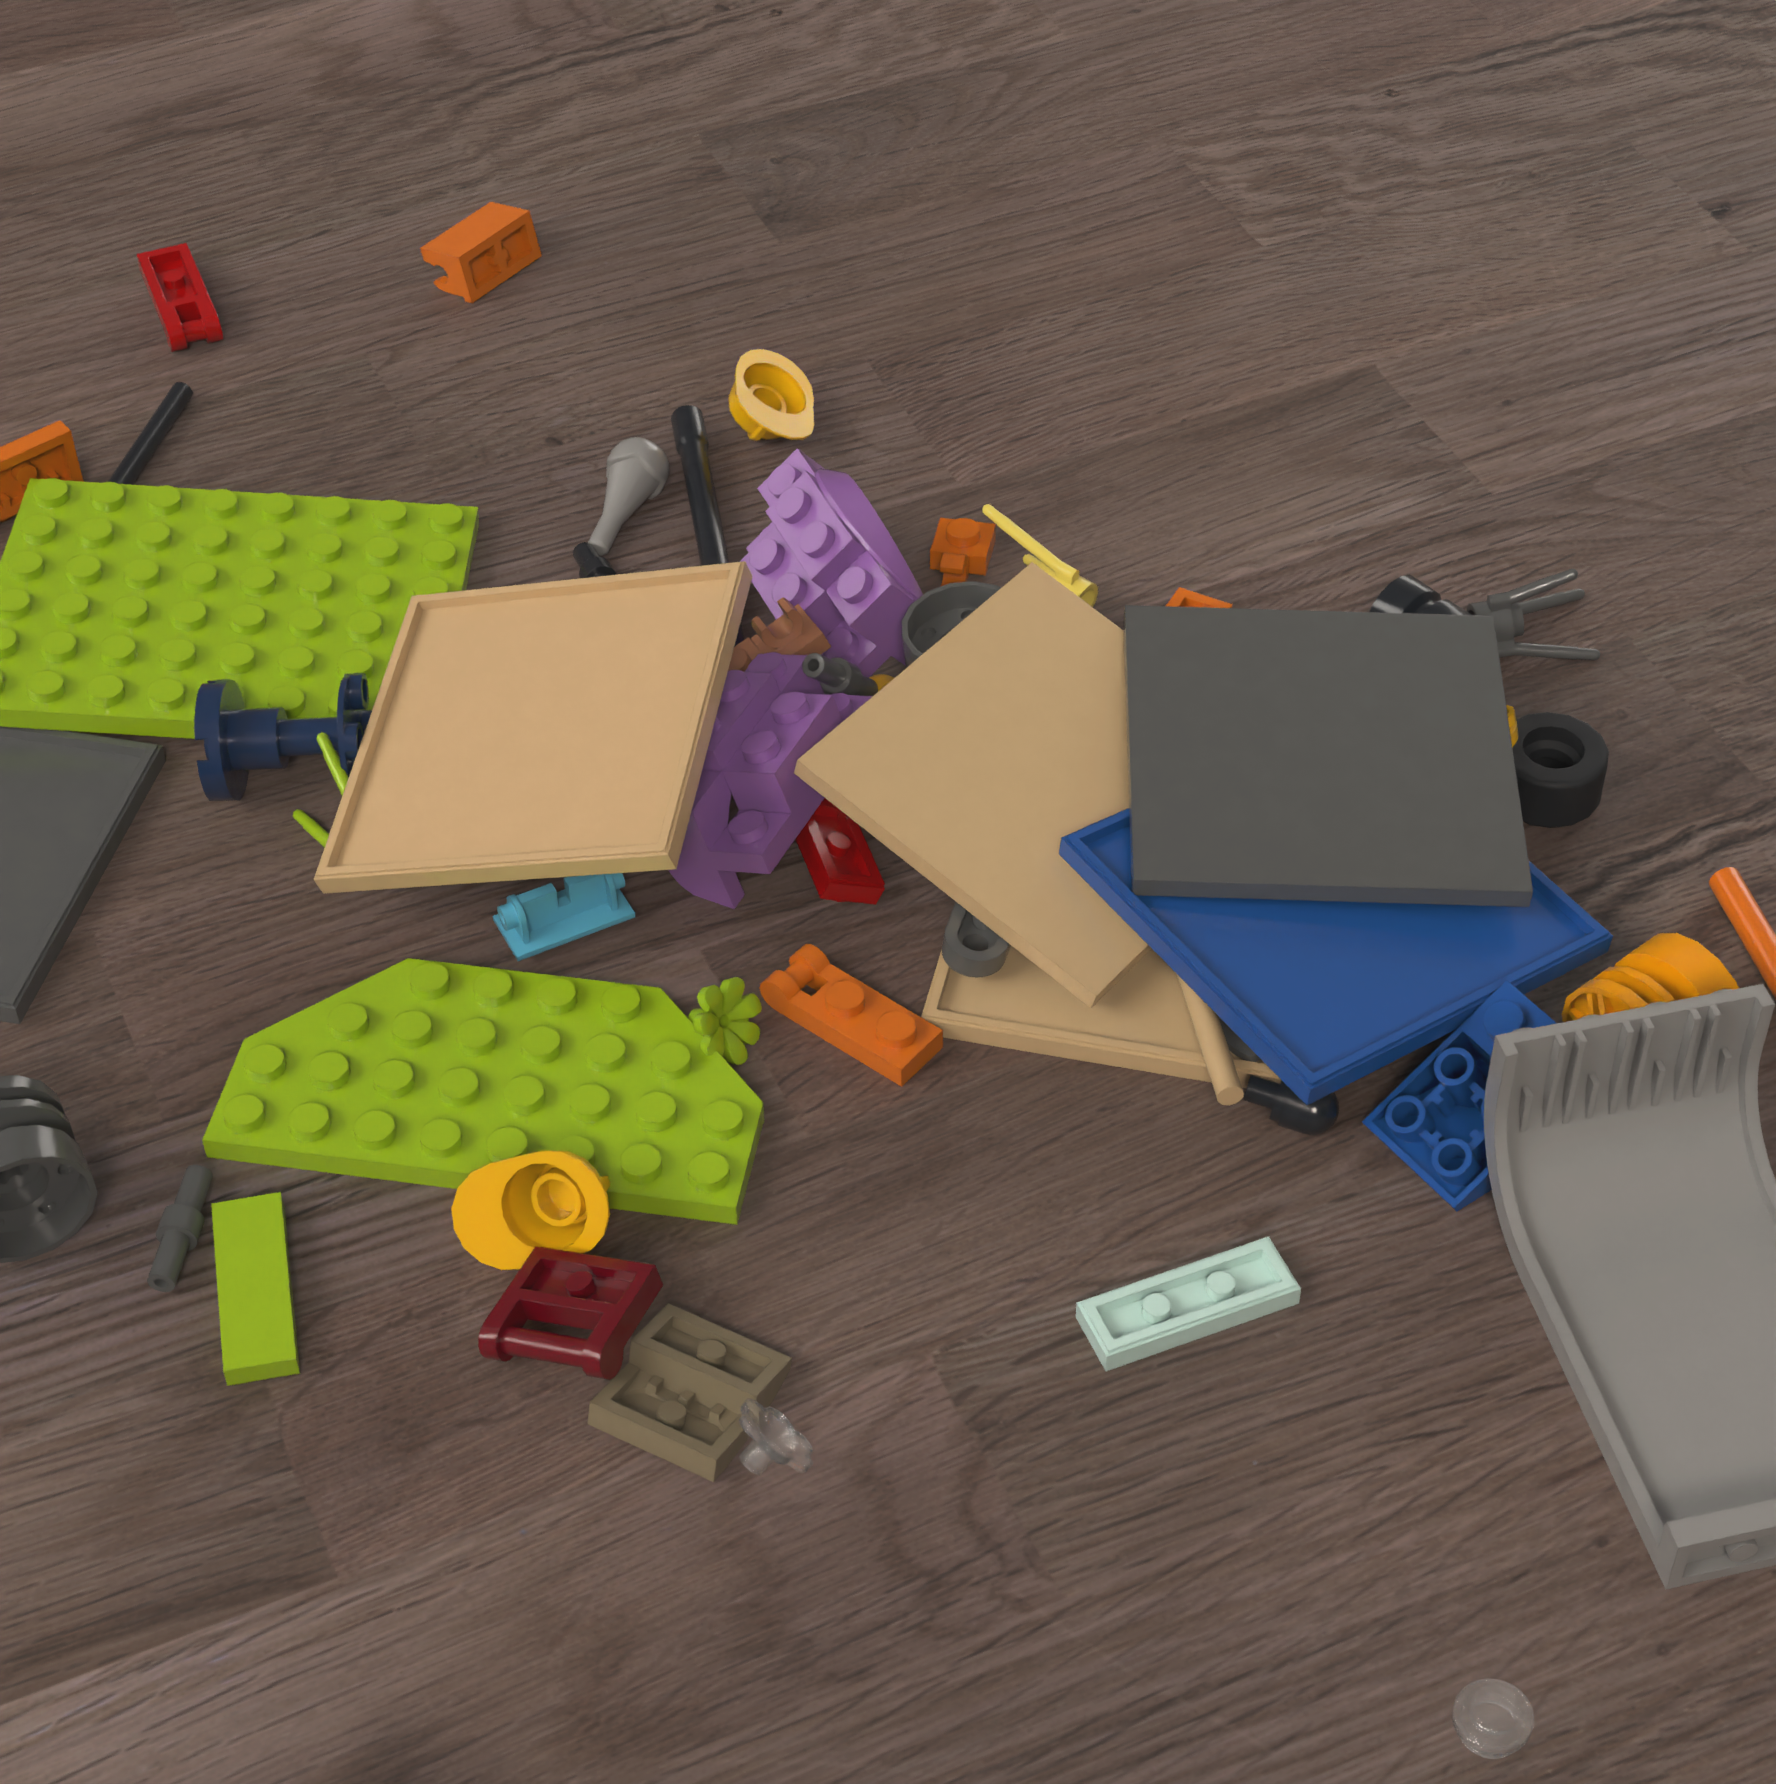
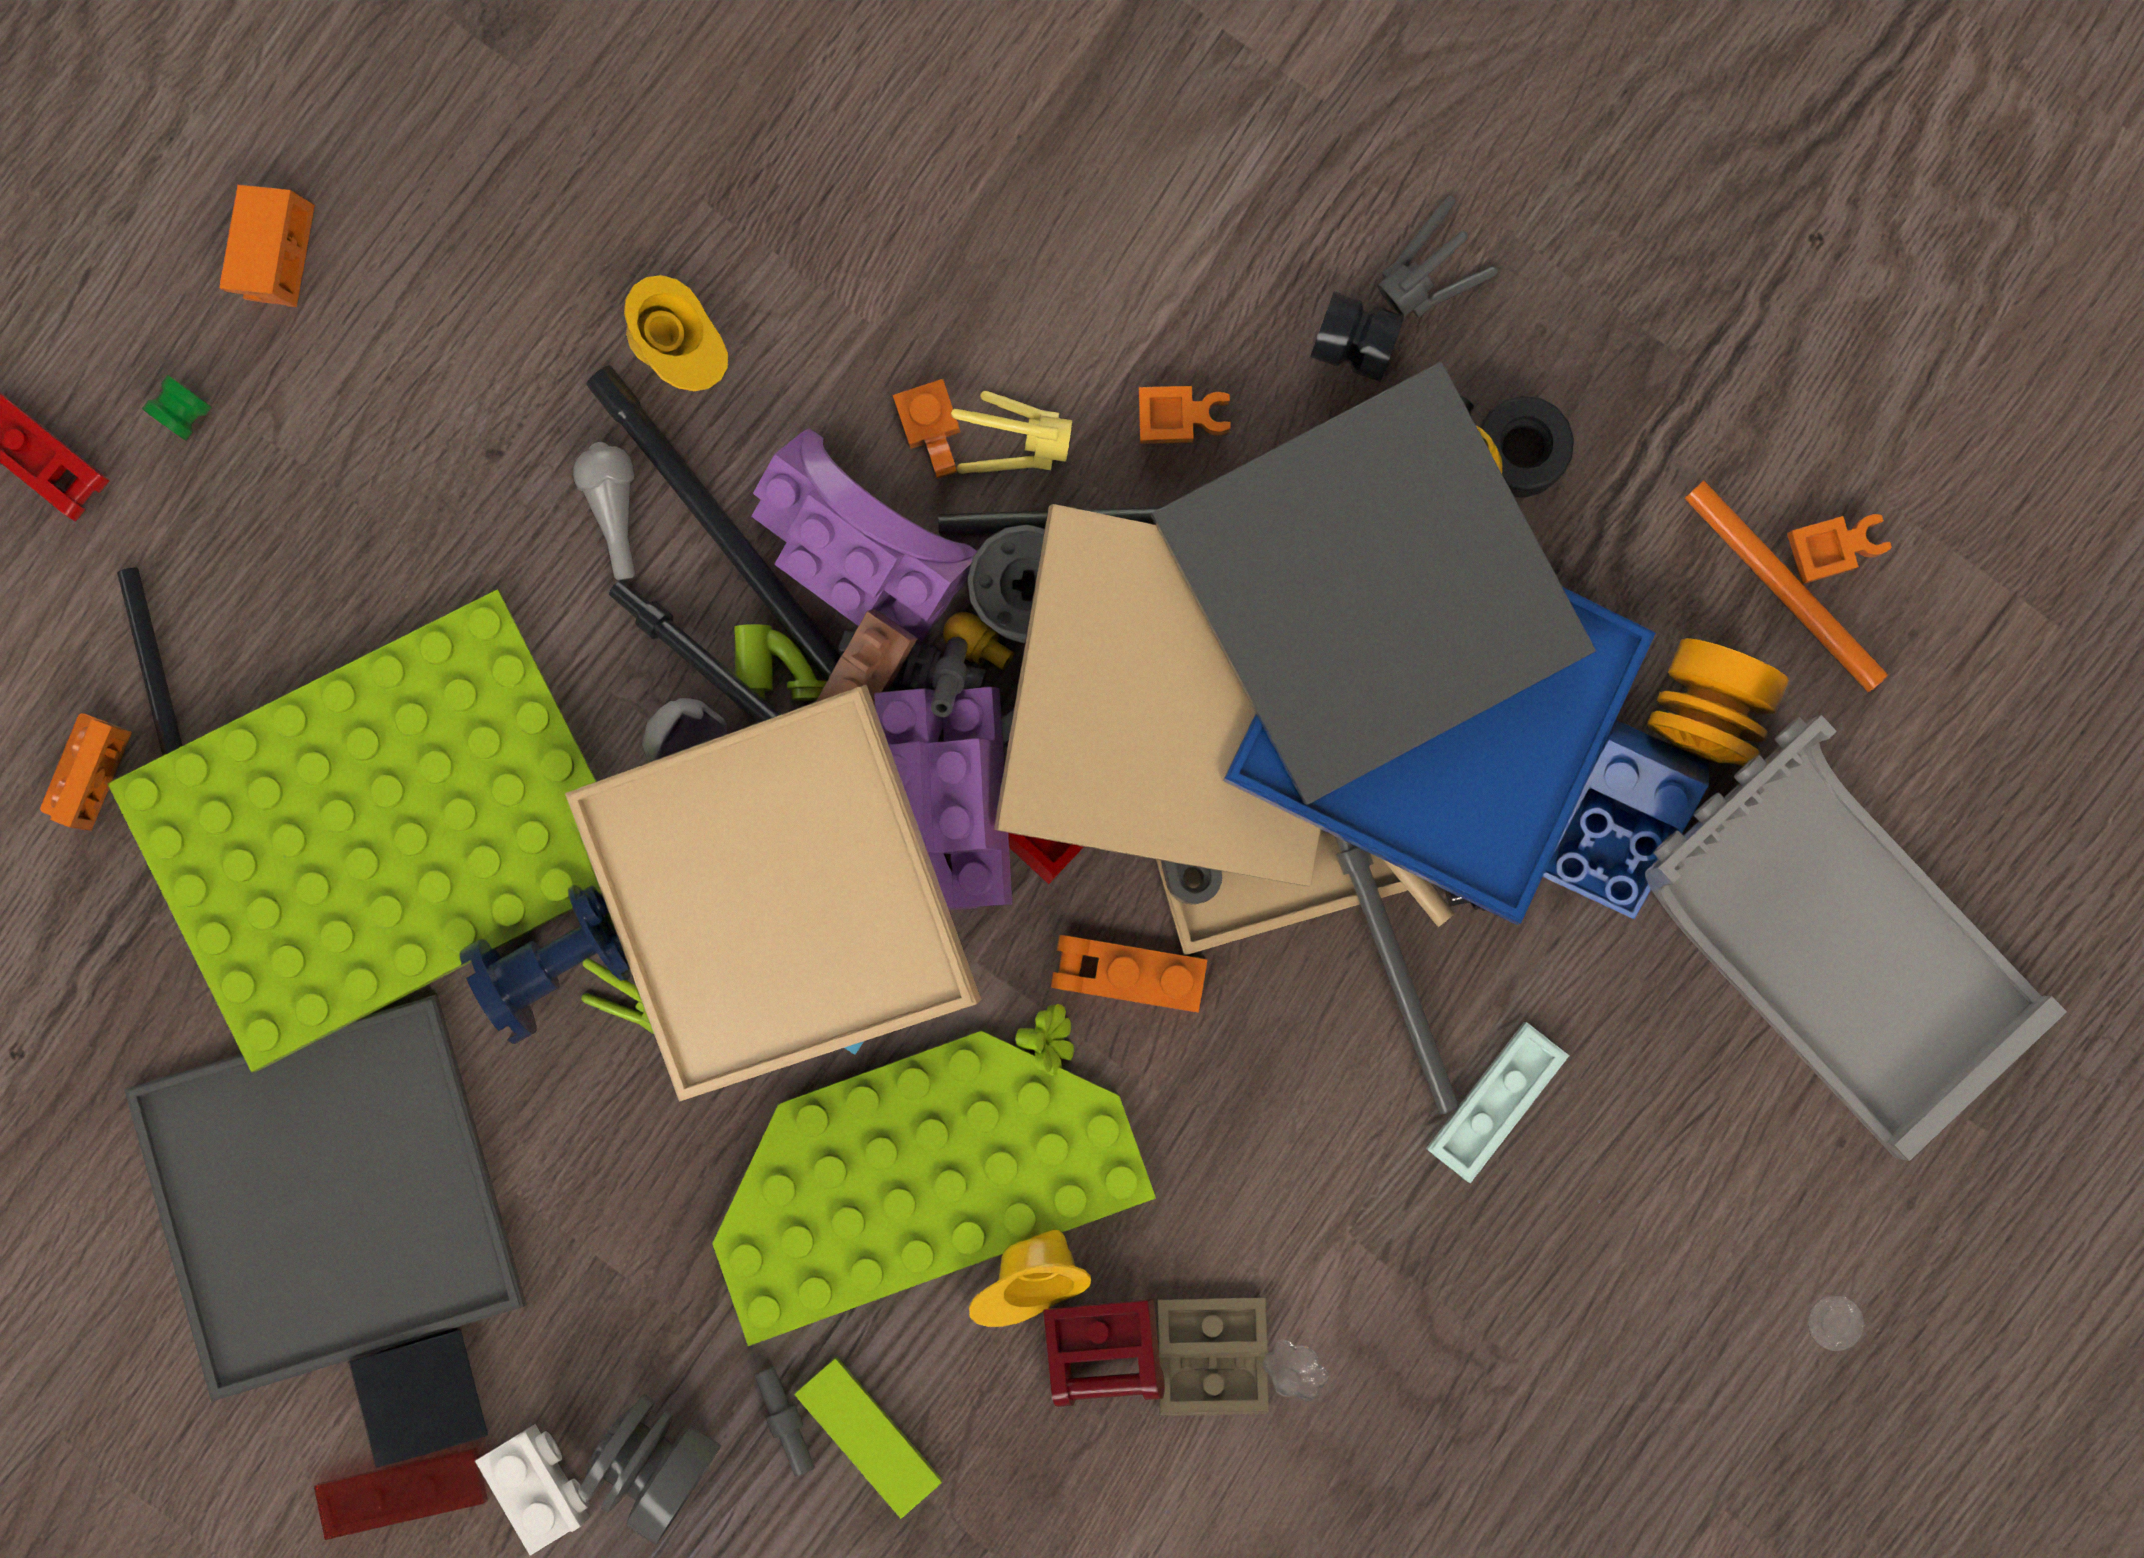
camera: 25 degrees left, 40 degrees up
(319, 307) = (176, 407): none -> green wheel
(1160, 1010) = (1356, 864): none -> dark grey bar

